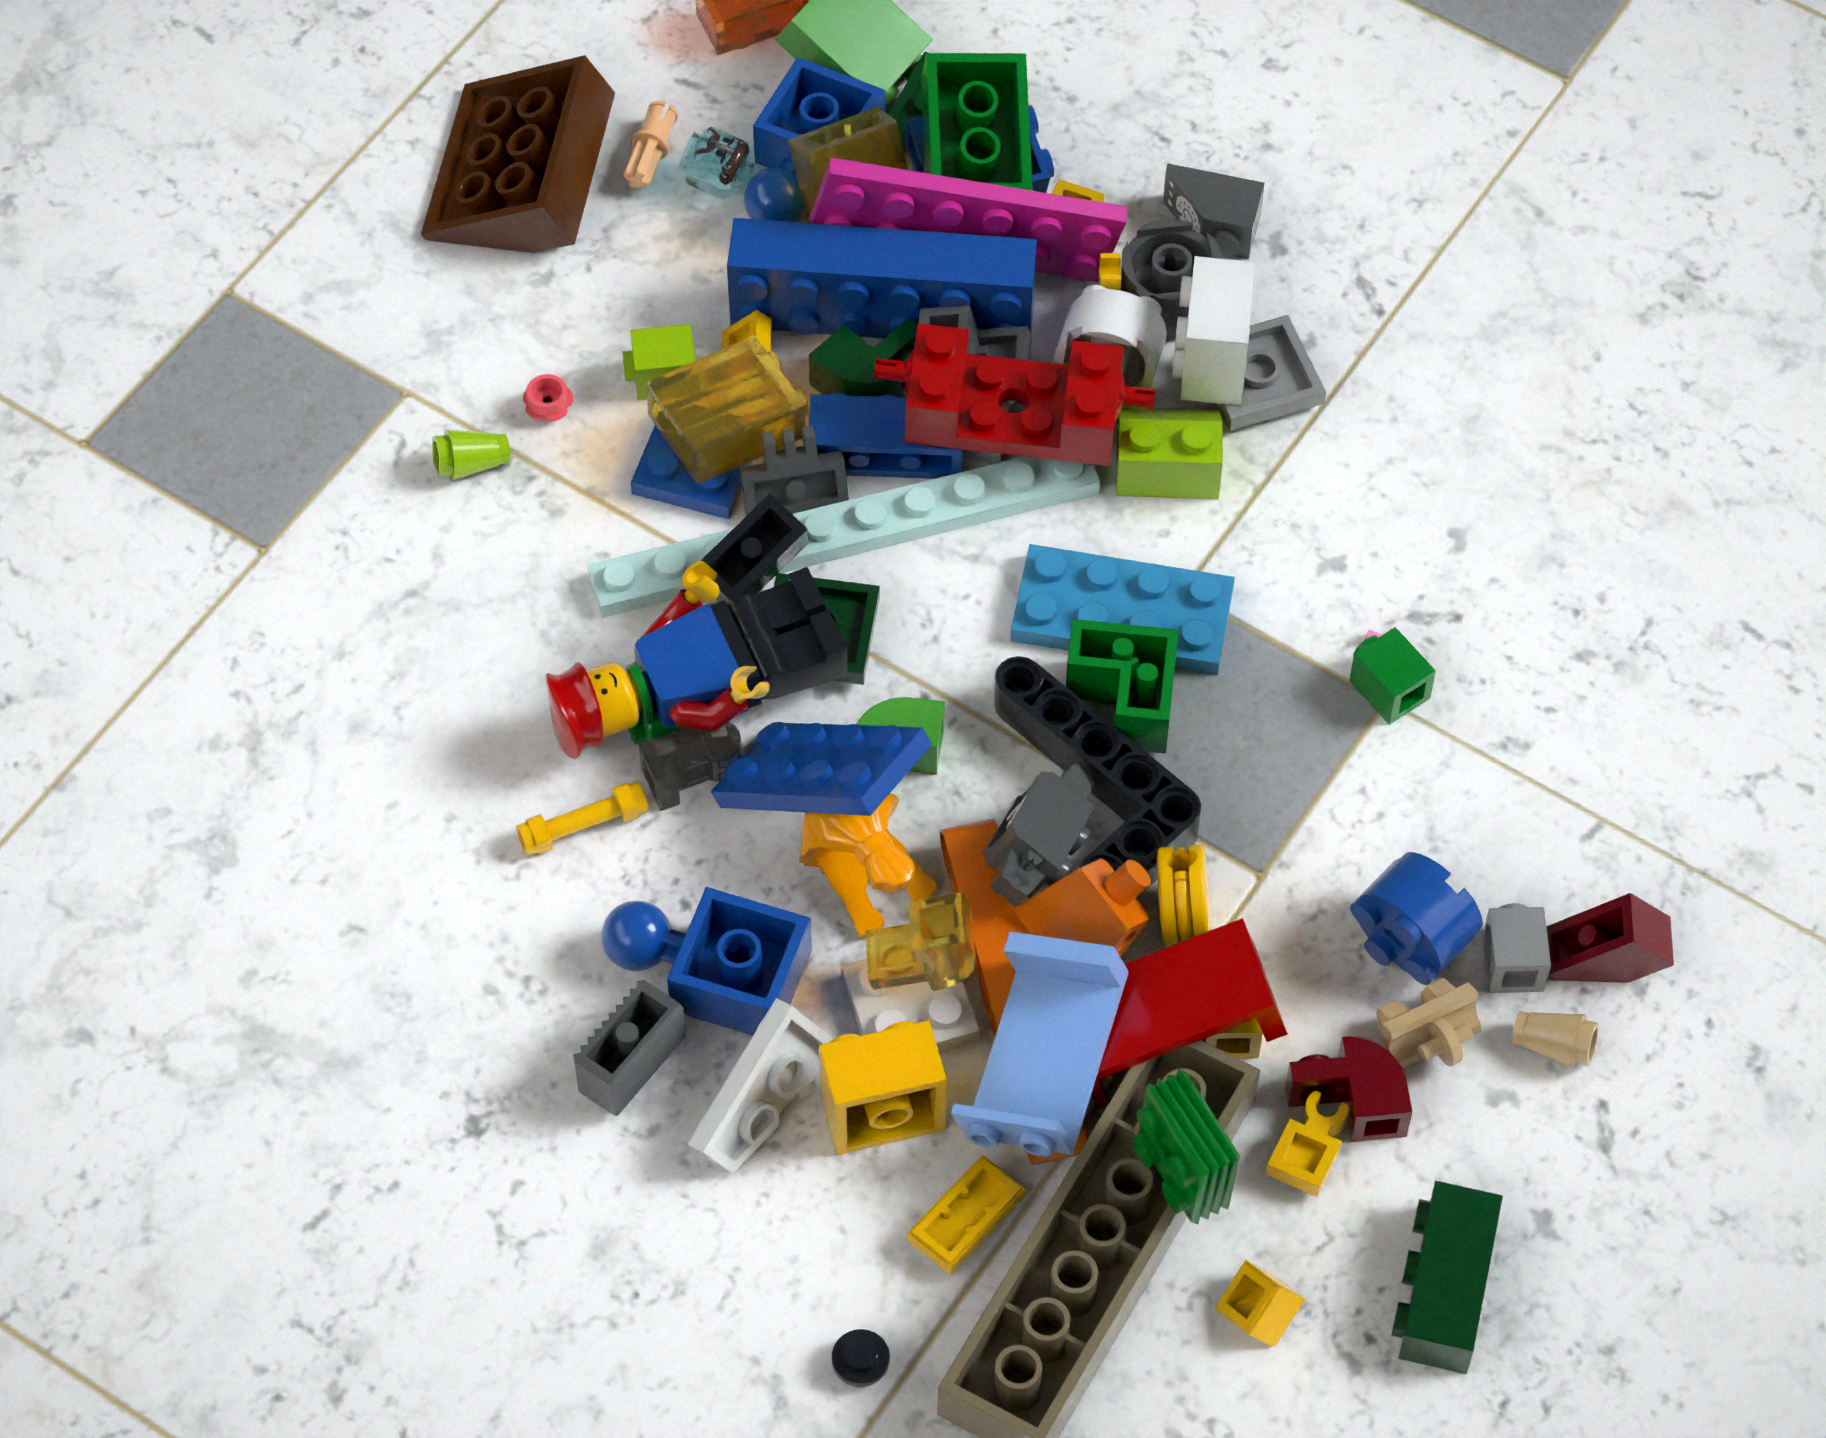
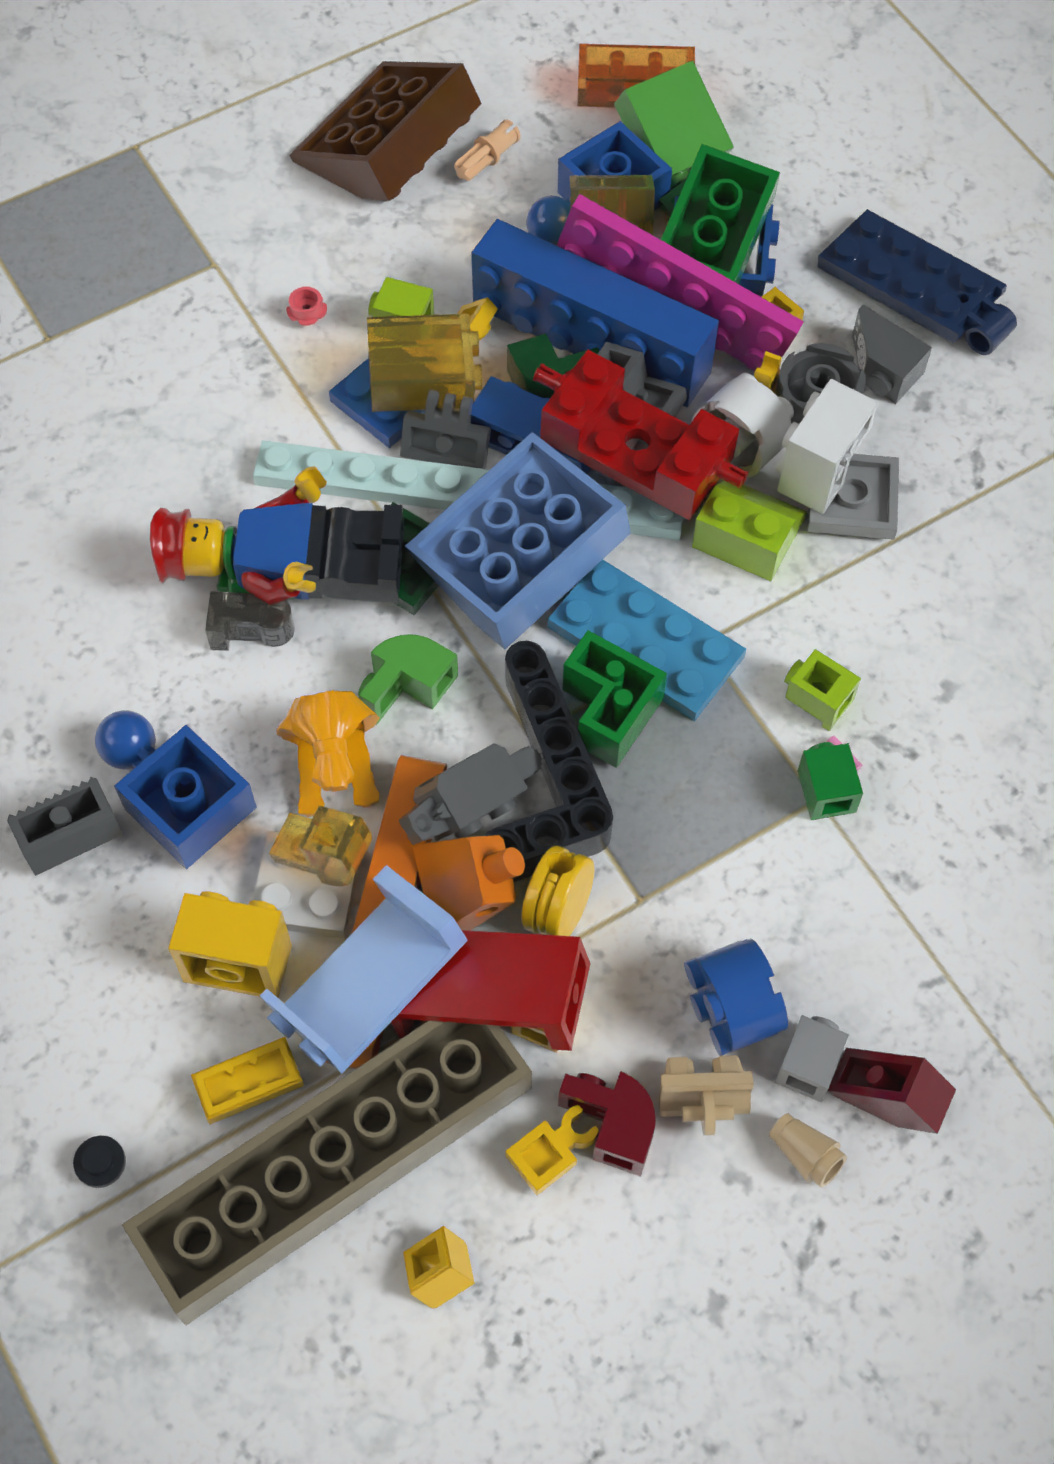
camera: 25 degrees right, 5 degrees up
(468, 452) = (225, 323): lime cone -> none
(626, 801) = (107, 629): yellow bar -> none
(717, 163) = (525, 179): clear light blue head -> none
(756, 549) = (373, 477): black brick -> none
(762, 1083) = (143, 902): white wing -> none
(821, 768) = (326, 668): blue plate -> none
(942, 555) = (520, 539): none -> medium blue slope
(1186, 1148) = (415, 1099): green brick -> none
(1207, 115) = (920, 282): none -> dark blue hinge
(1333, 584) = (821, 687): none -> lime brick
(1447, 1276) = (602, 1320): dark green brick -> none

